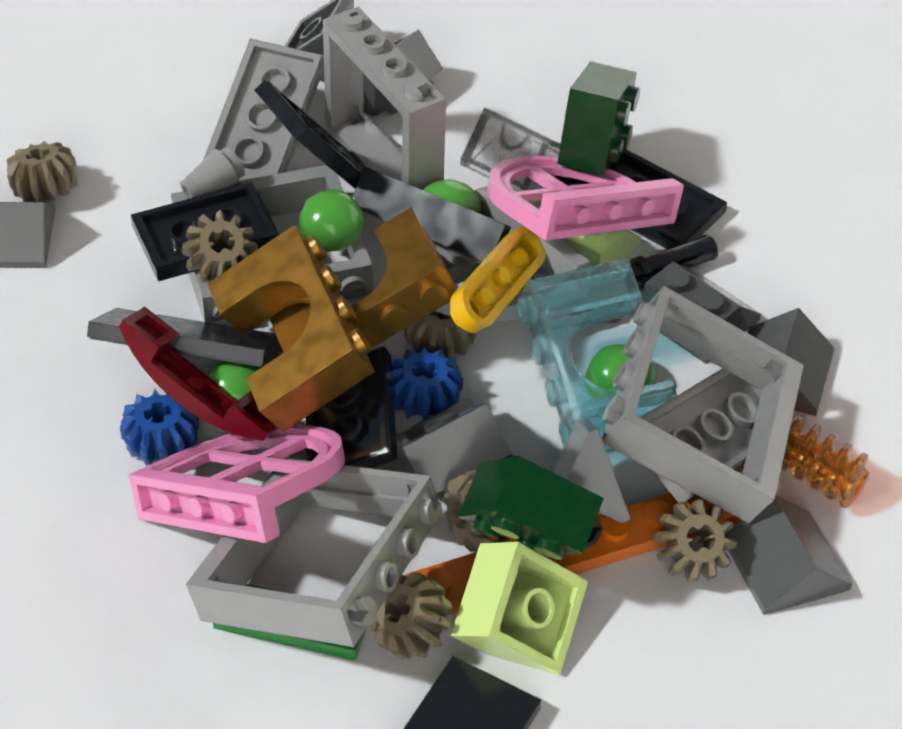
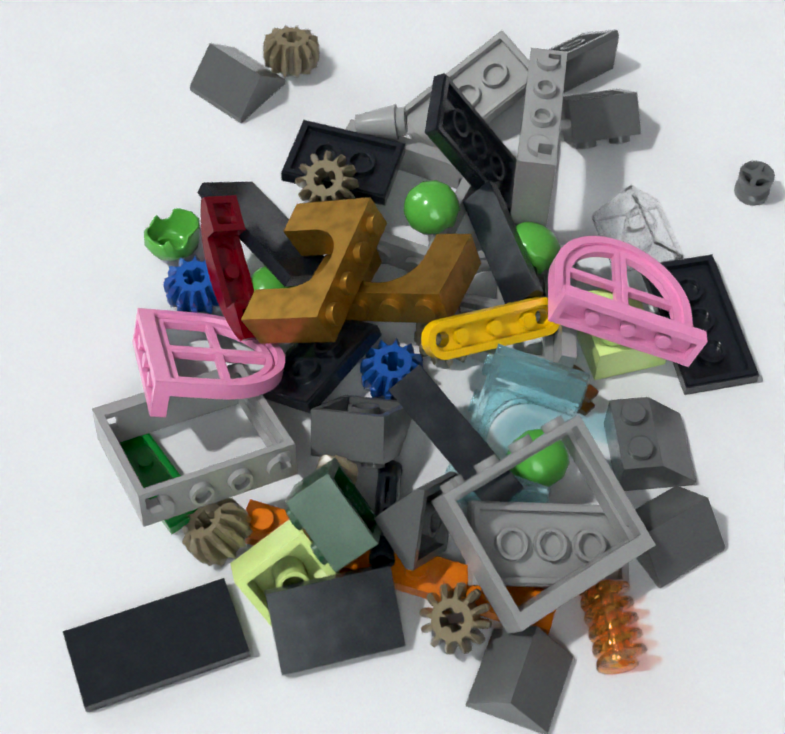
camera: 40 degrees right, 10 degrees up
(91, 394) = (173, 236): none -> bright green hair
(544, 382) = (451, 433): none -> black tile
(571, 57) = (753, 174): none -> dark grey wheel
(594, 614) = (335, 618): none -> black tile
(598, 118) = (698, 245): dark green brick -> none
(686, 254) = (666, 394): black pin -> none

